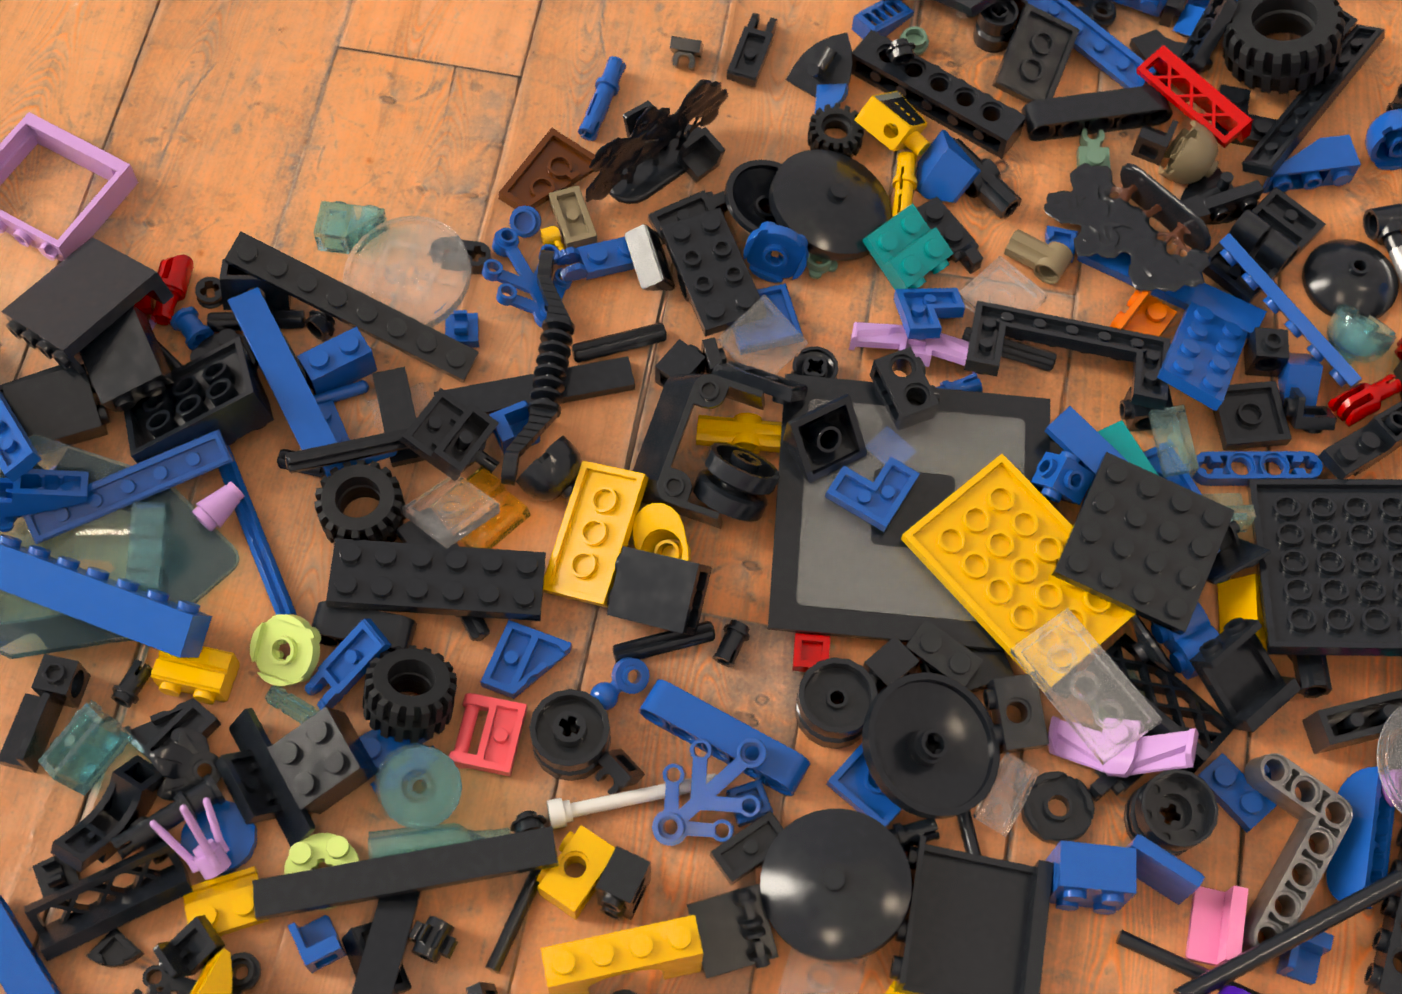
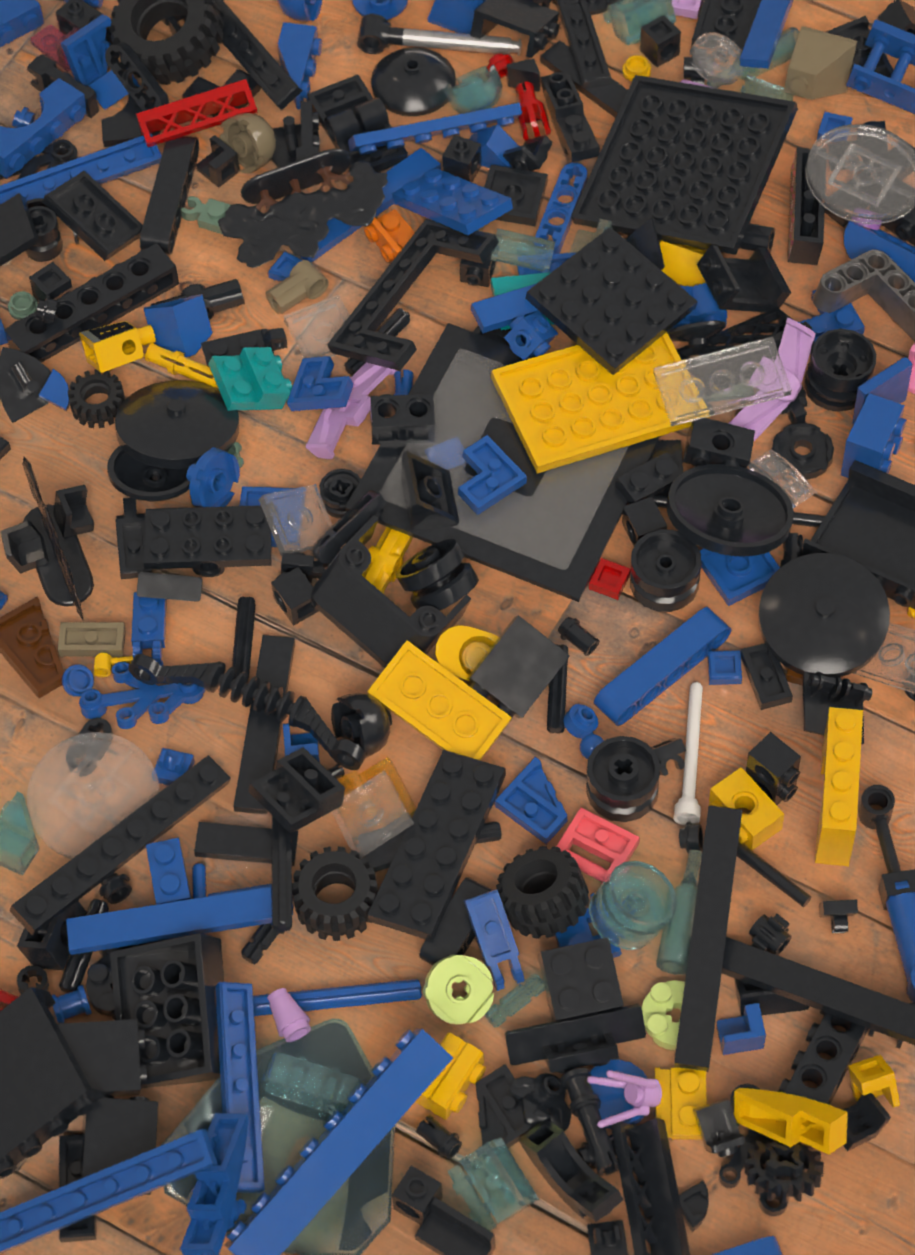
camera: 65 degrees left, 5 degrees down
(705, 795) = (711, 691): plant -> none
(941, 48) = (50, 282): none -> black panel

